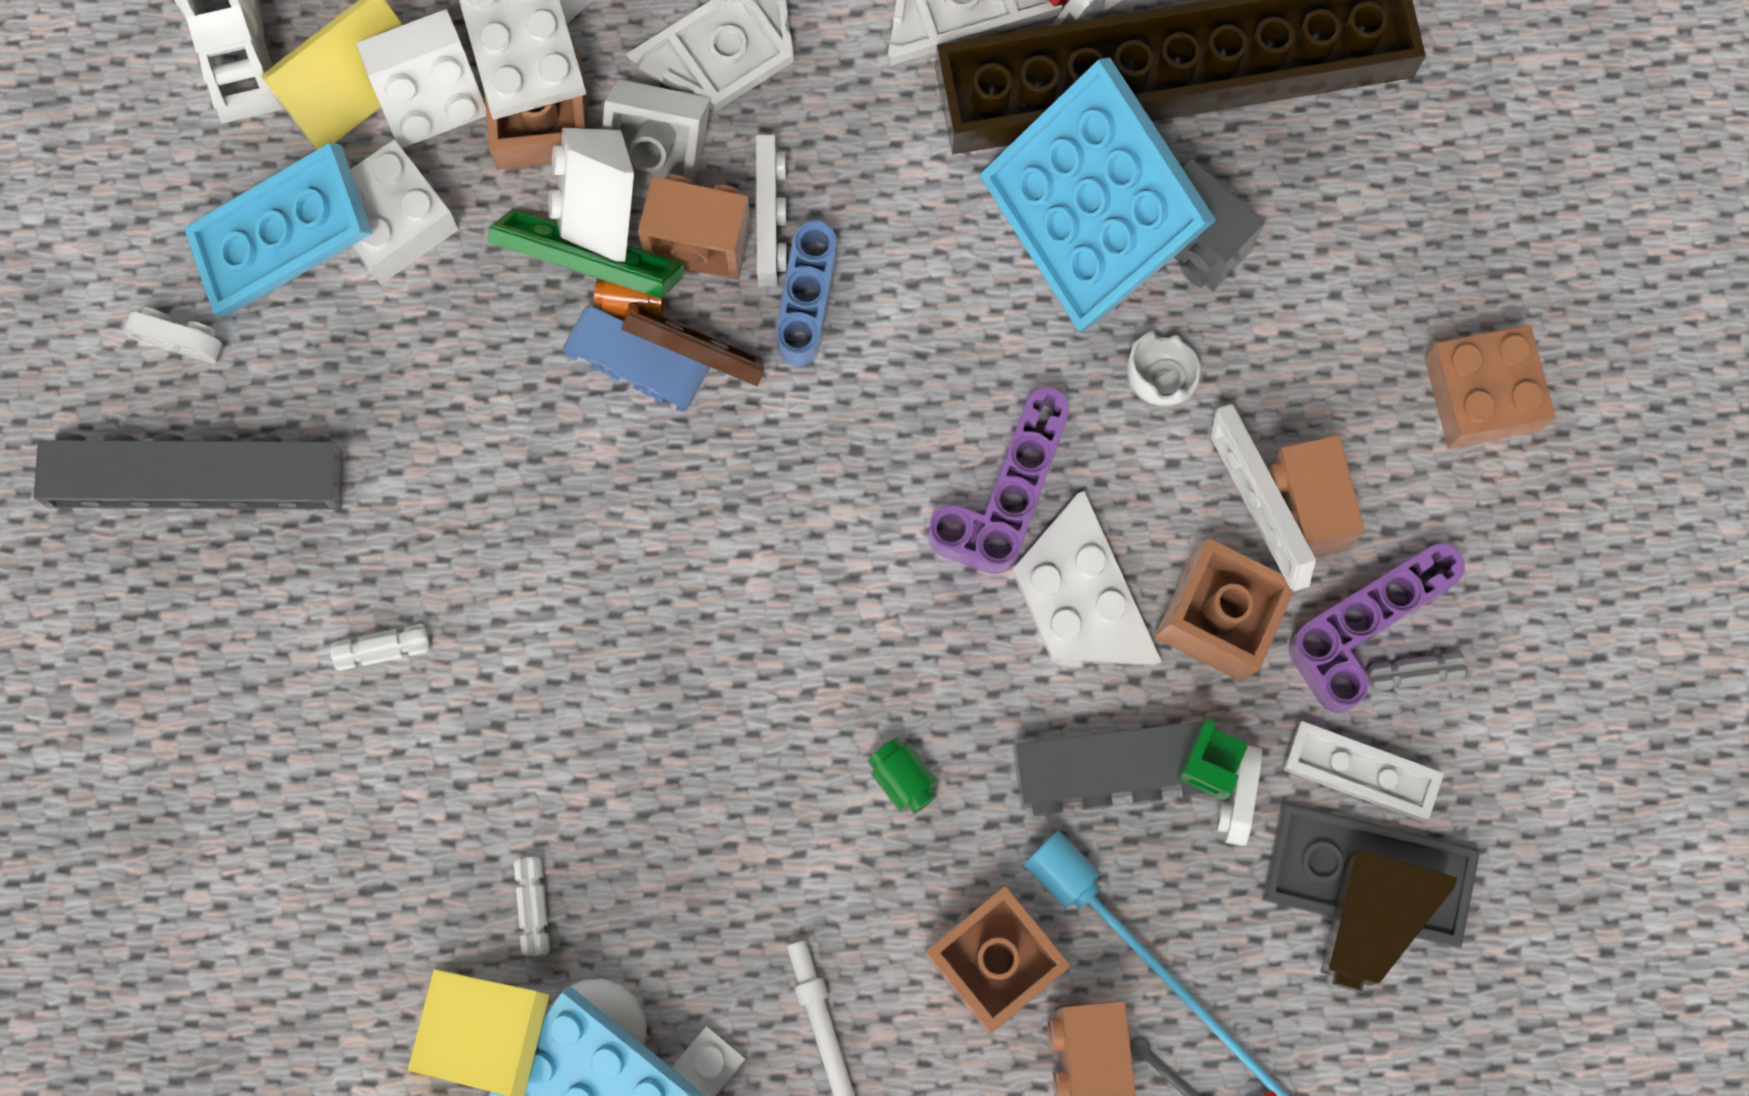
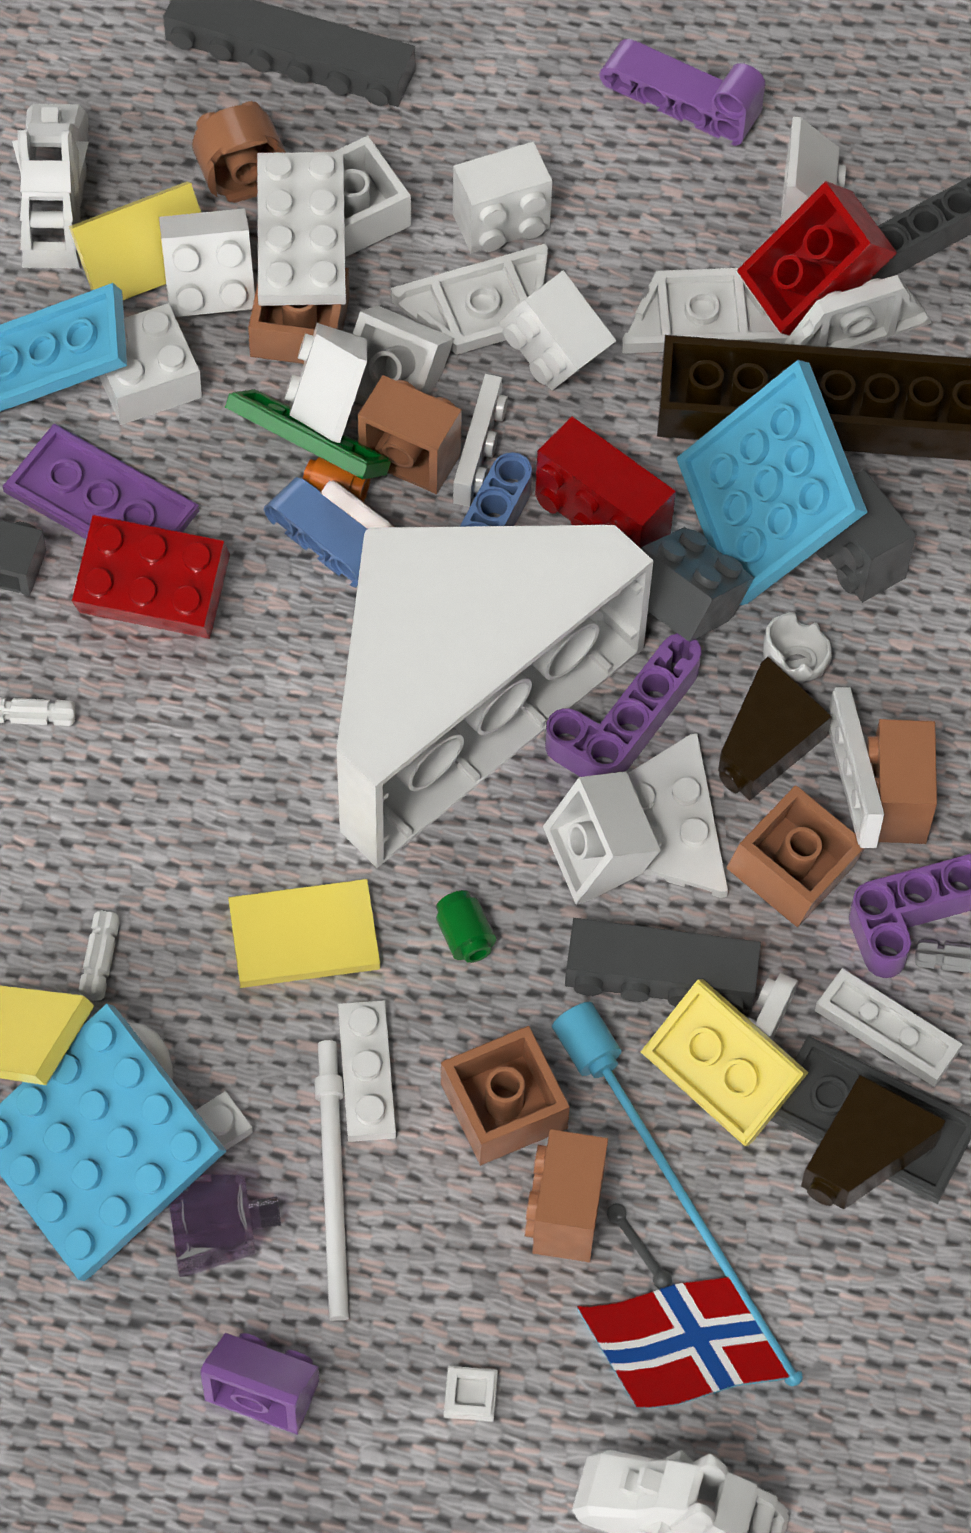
camera: 15 degrees right, 15 degrees down
(384, 378) = (77, 480): none -> medium lavender tile
(465, 466) = (151, 576): none -> red brick
(737, 824) = (304, 933): none -> light yellow tile
(820, 69) = (556, 331): none -> white brick
(825, 486) = (466, 656): none -> white slope
(844, 961) = (366, 1071): none -> white plate
(918, 245) = (601, 485): none -> red brick
(1019, 640) = (601, 835): none -> white slope
(1033, 329) = (694, 583): none -> dark grey brick
(1159, 470) = (770, 731): none -> dark brown slope
(1210, 860) = (724, 1062): none -> light yellow tile
(1213, 761) = (746, 969): green panel -> none

